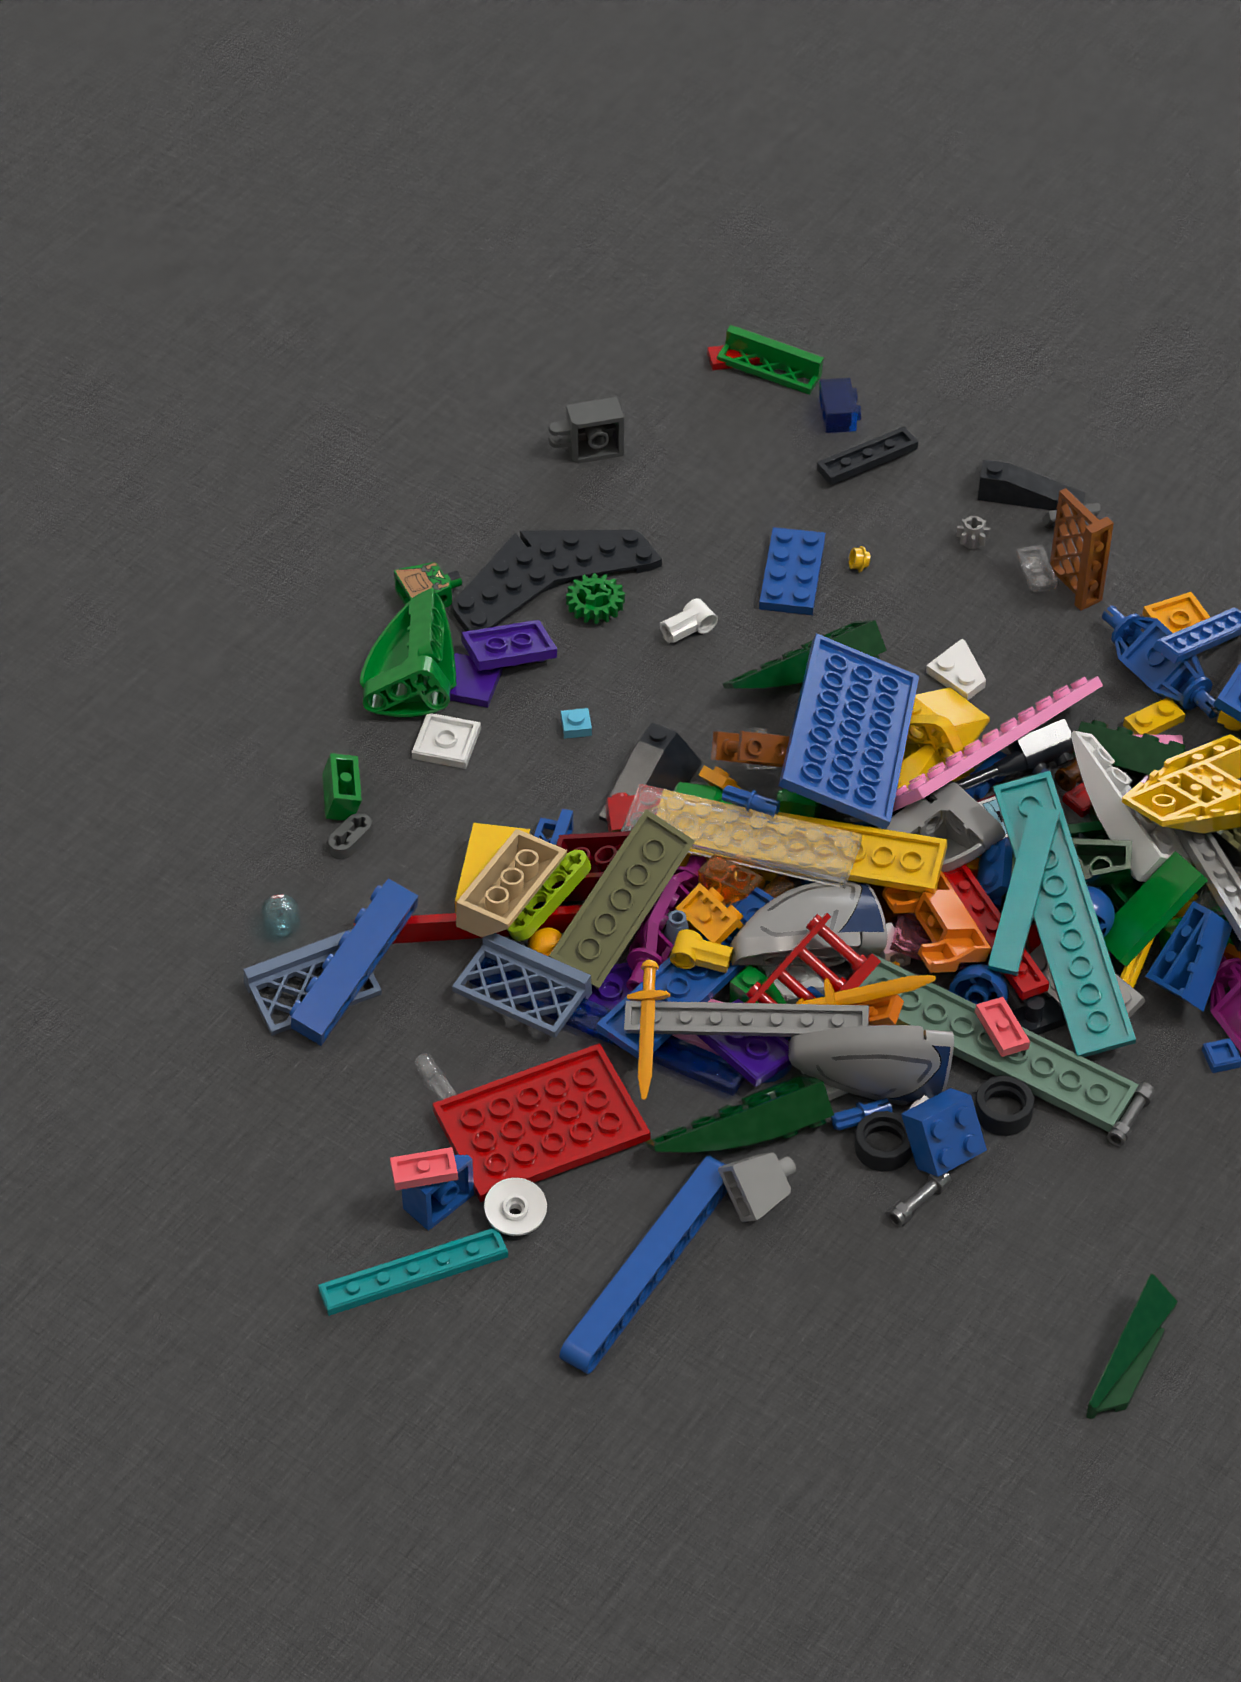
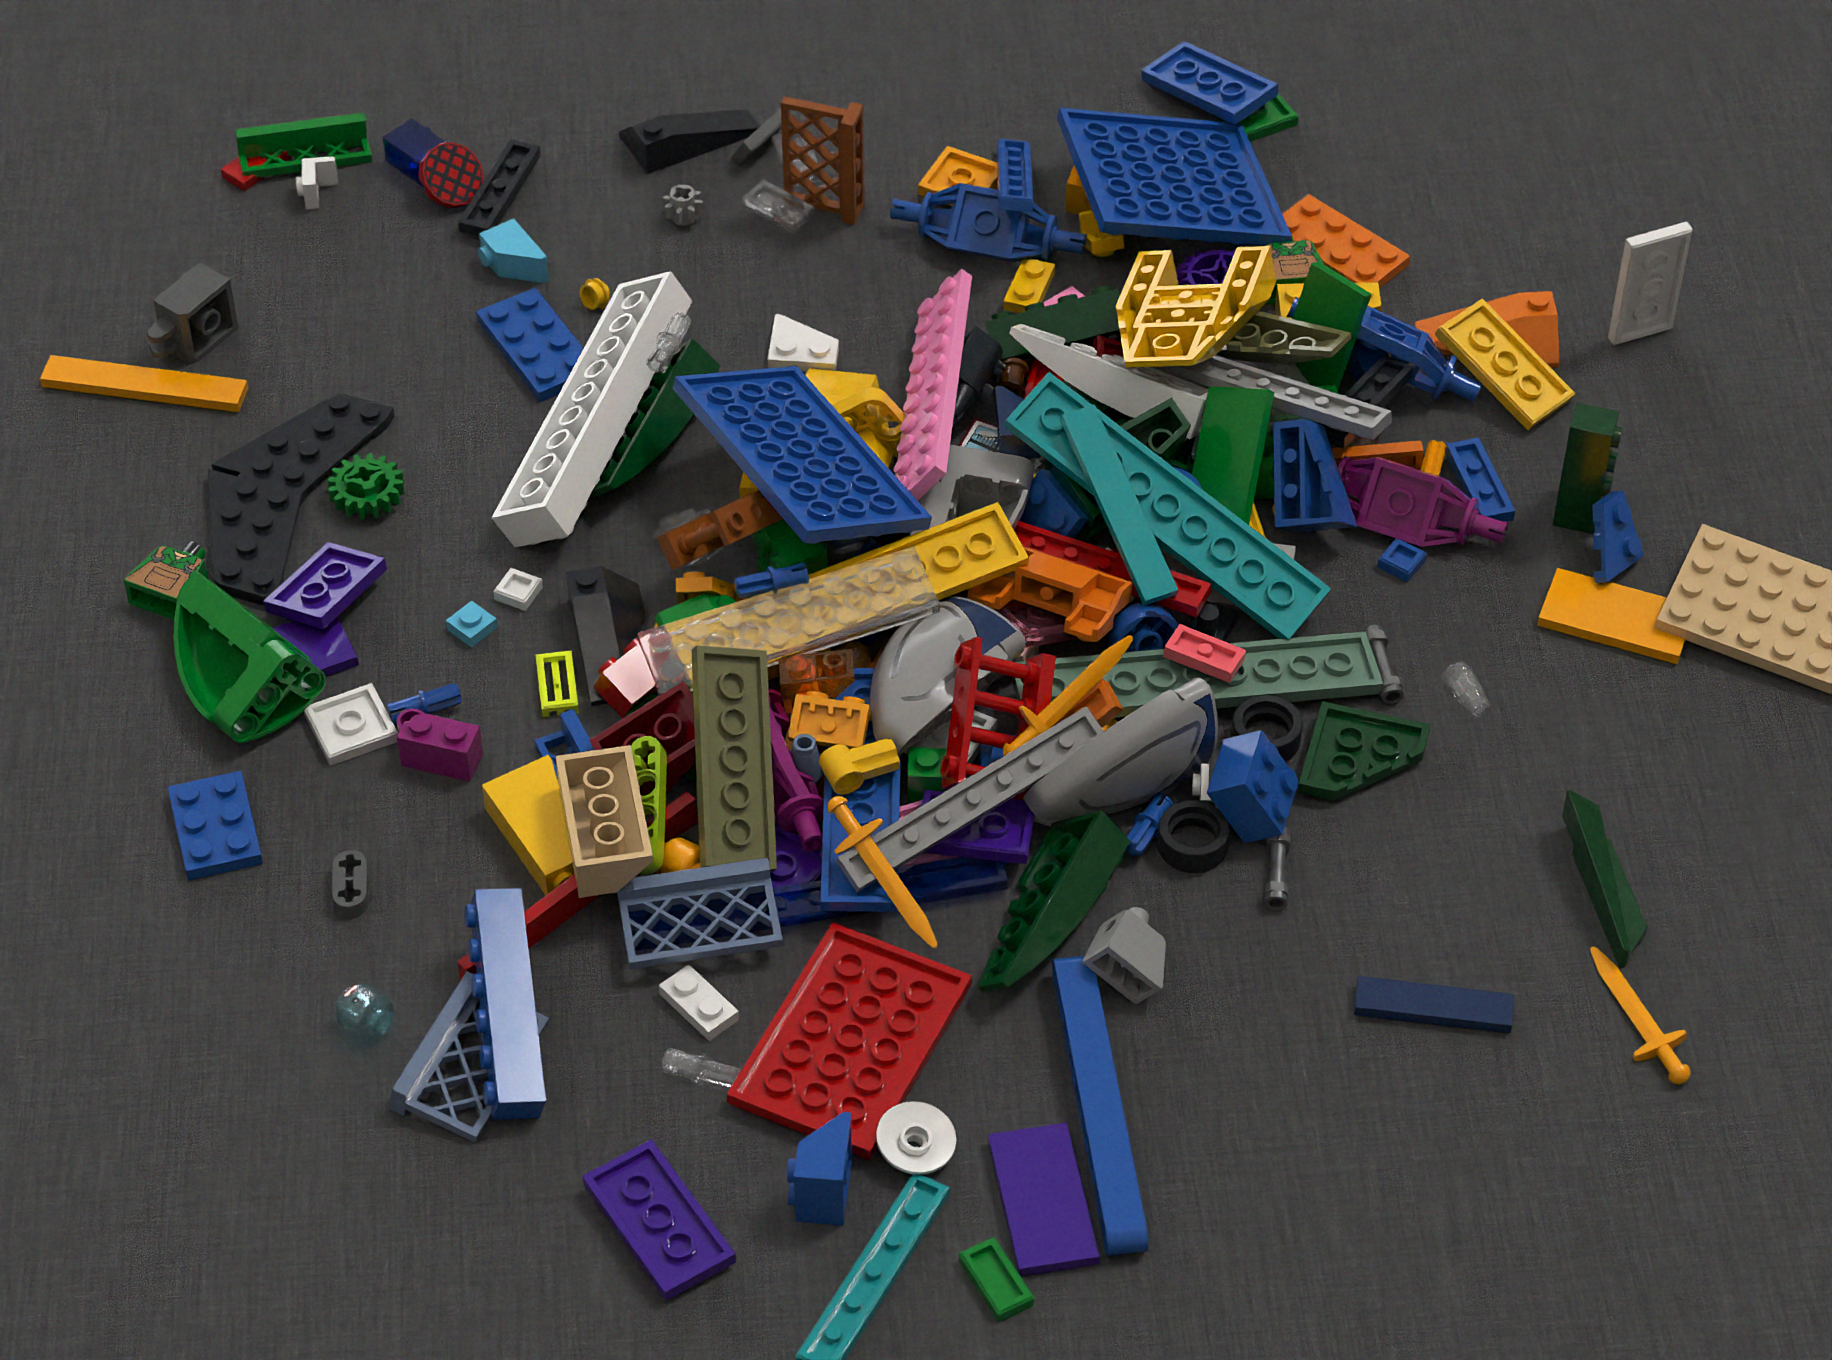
camera: 40 degrees left, 0 degrees up
(307, 751) = (215, 825): none -> blue plate
(322, 1150) = (659, 1219): none -> dark purple plate
(341, 786) = (298, 837): green brick -> none
(423, 1168) = (821, 1153): coral plate -> none
(477, 1040) = (699, 1002): none -> white plate
(478, 783) = (438, 744): none -> magenta hinge
(481, 1325) = (996, 1279): none -> green tile
(497, 754) = (428, 701): none -> blue axle
(533, 458) = (144, 383): none -> light orange tile
(557, 1298) = (1043, 1199): none -> dark purple tile
(583, 805) = (559, 704): none -> neon yellow tile
(625, 718) = (518, 589): none -> white tile
(695, 617) = (489, 447): white piece -> none
(754, 383) = (316, 173): none -> white bracket
(774, 630) = (589, 413): none -> white brick
(831, 501) = (513, 253): none -> medium azure slope
(840, 428) = (451, 174): none -> tile
(857, 614) = (668, 343): none -> clear axle
(931, 1353) = (1434, 1004): none -> dark blue tile
(1052, 1157) = (1358, 749): none -> dark green plate
(1056, 1480) = (1656, 1042): none -> light orange sword
(1171, 1165) = (1465, 687): none -> clear cone

